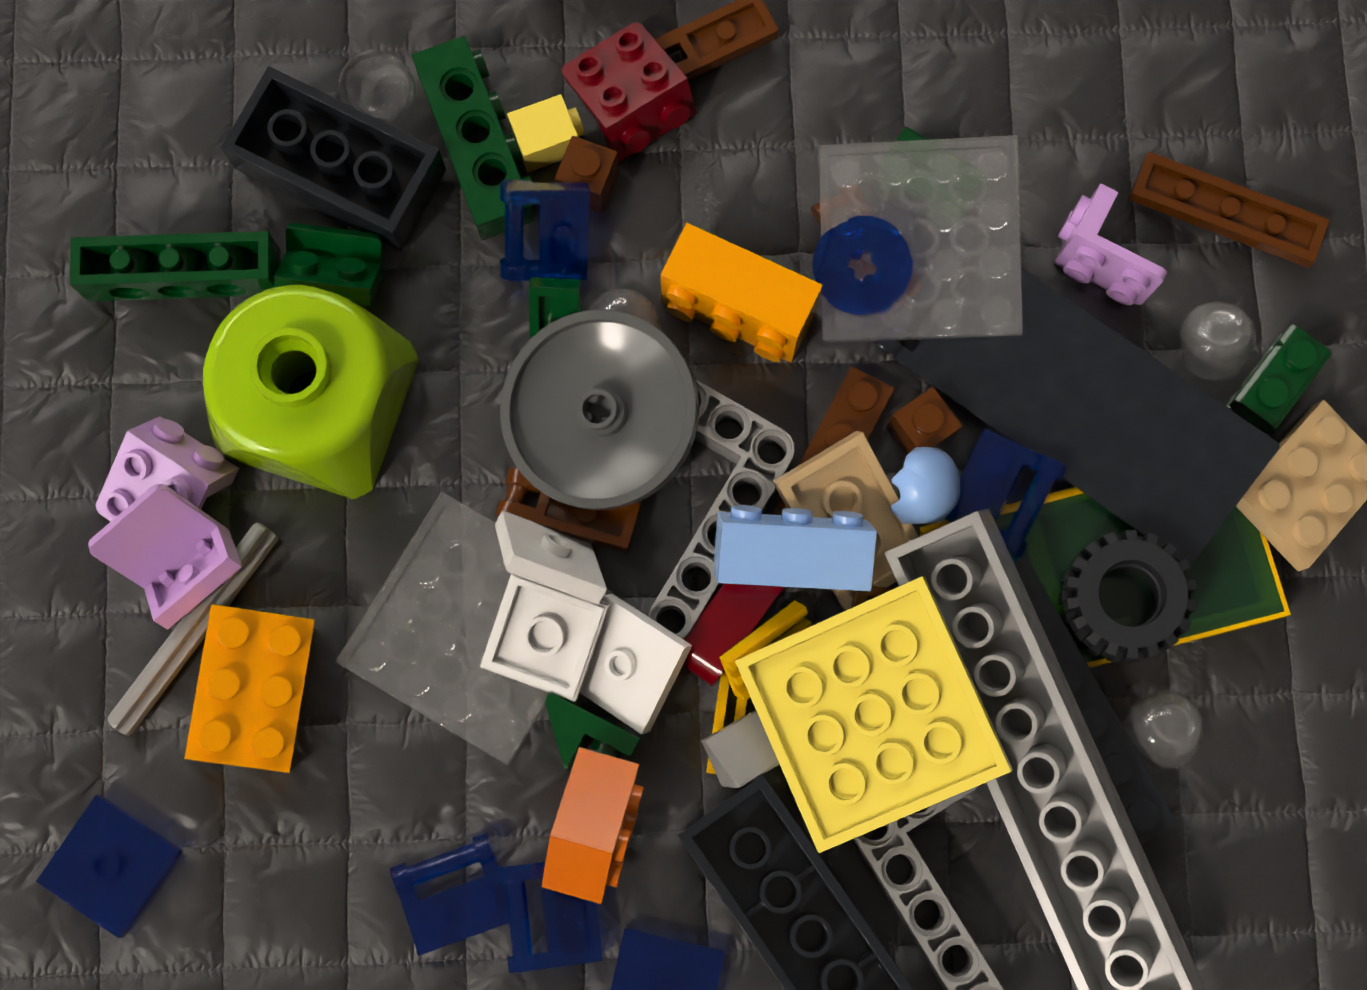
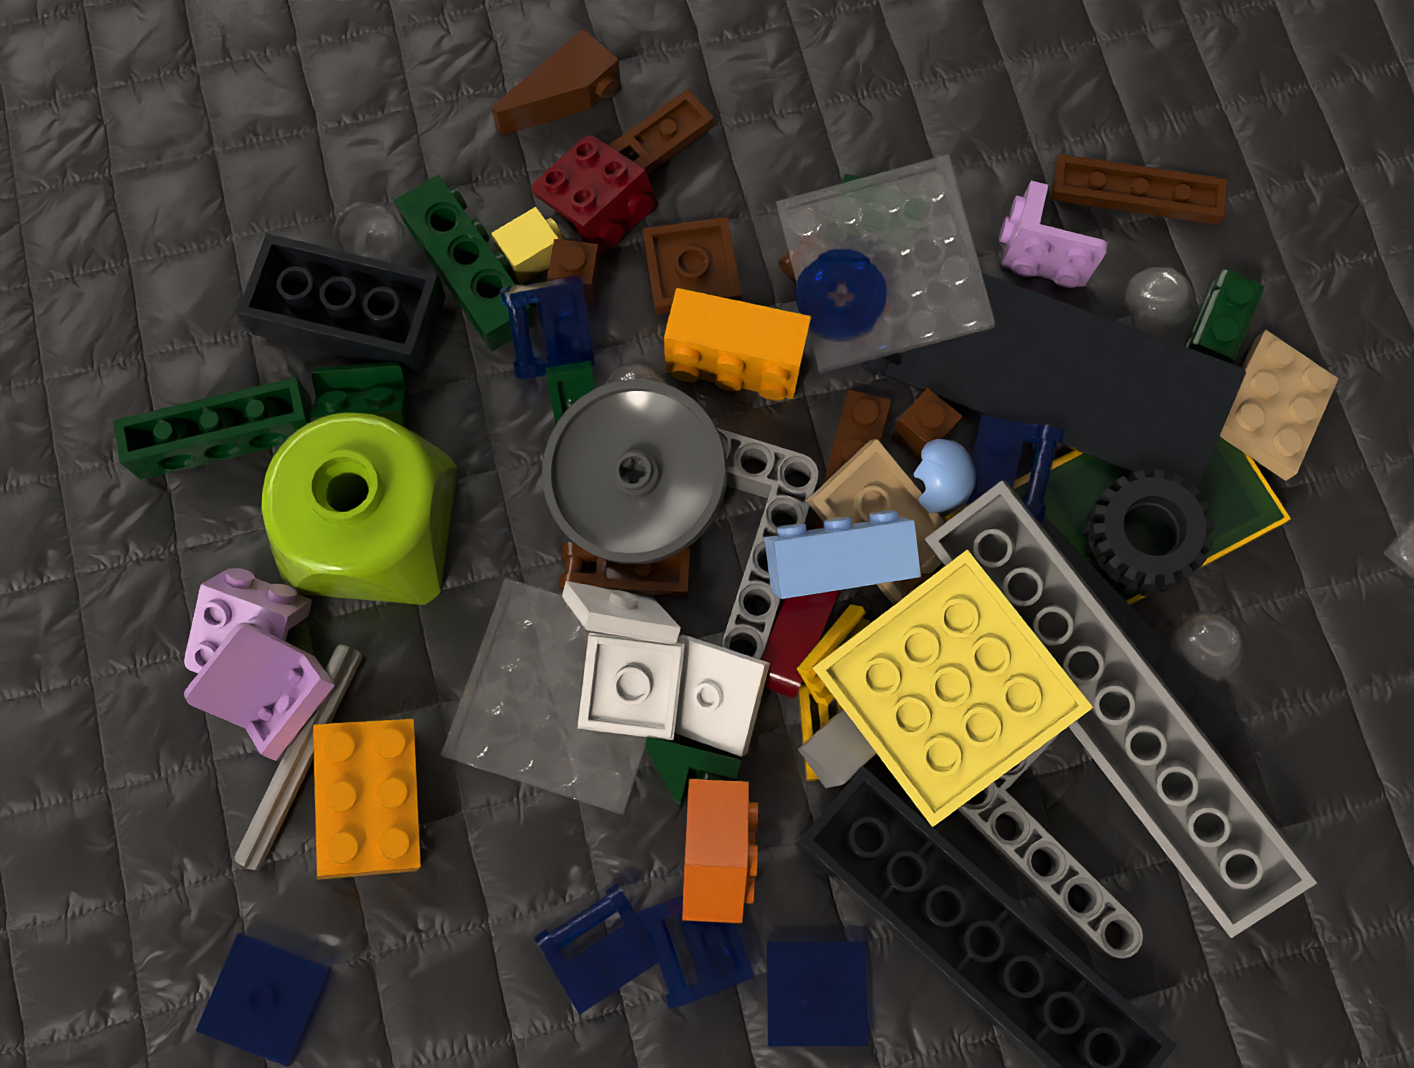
camera: 15 degrees left, 5 degrees down
(716, 190) = (691, 258): none -> reddish brown plate

